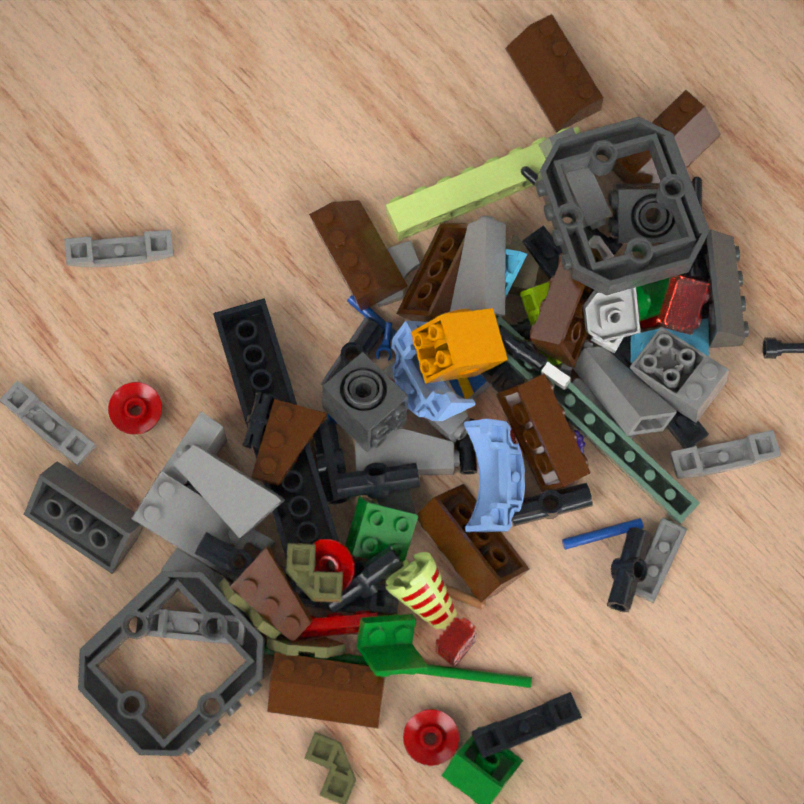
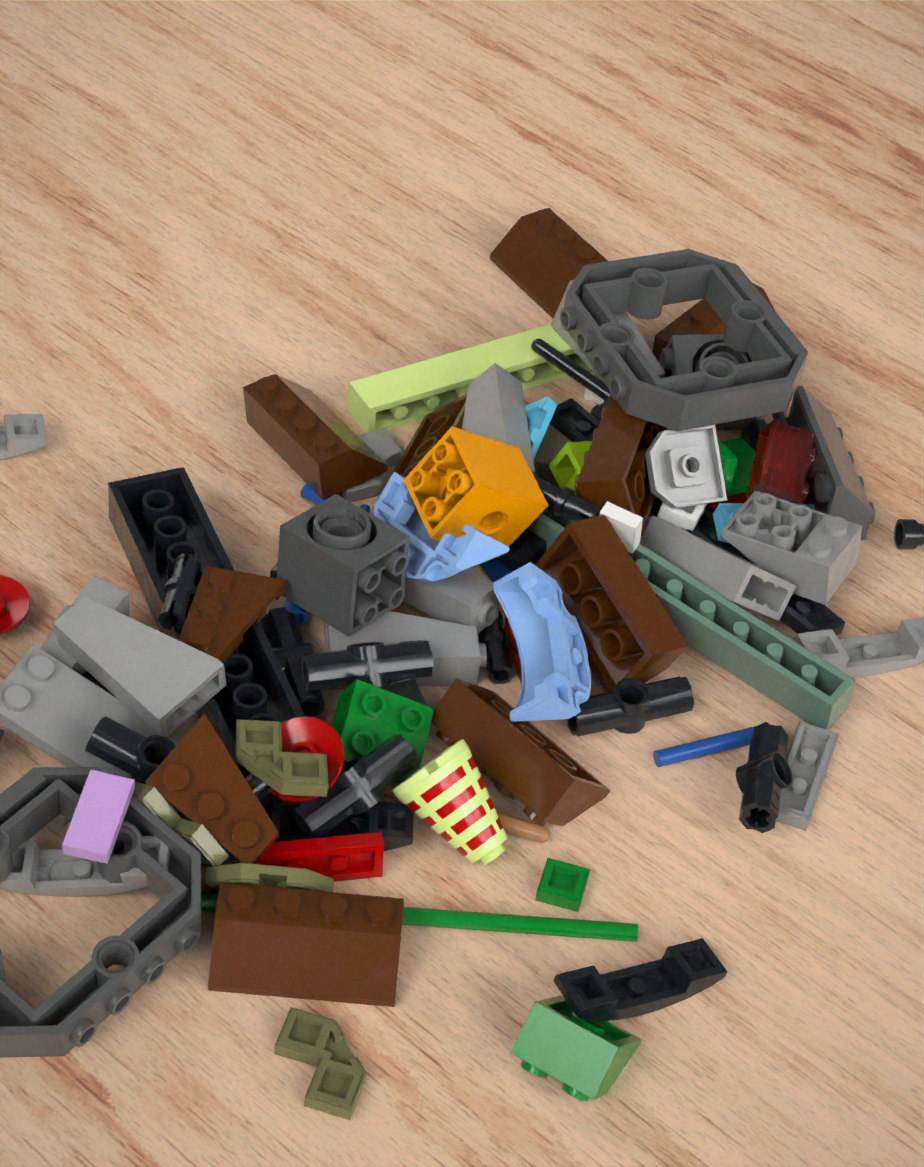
camera: 10 degrees left, 30 degrees down
(201, 611) = (98, 816): none -> lavender tile
(388, 645) = (403, 866): green bracket -> none
(434, 723) = (488, 990): red dish -> none
(456, 640) = (511, 864): clear red brick -> none
(489, 644) = (562, 884): none -> green tile

